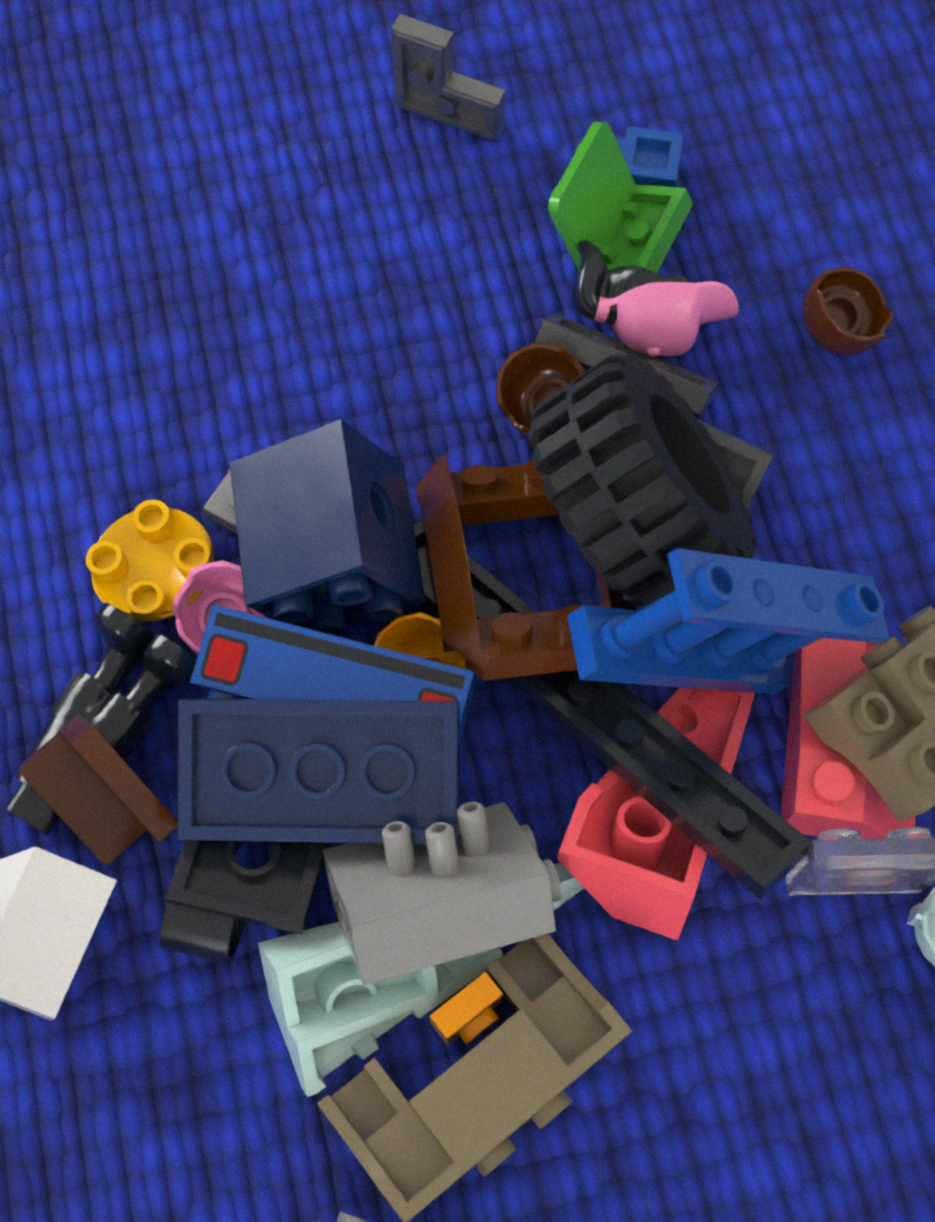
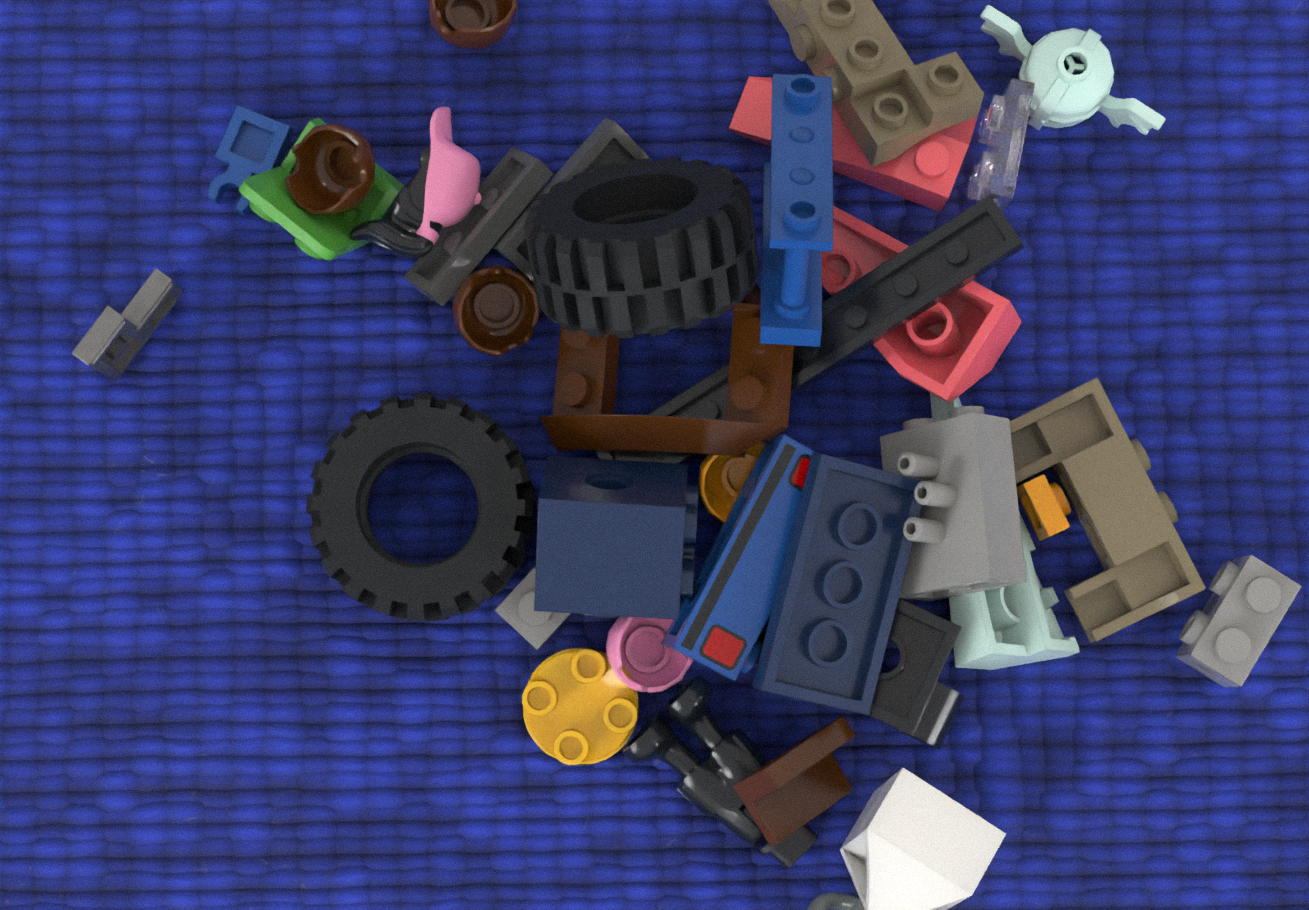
camera: 80 degrees left, 15 degrees up
(314, 296) = (343, 493): none -> black tyre
(642, 209) = (331, 170): none -> reddish brown hair

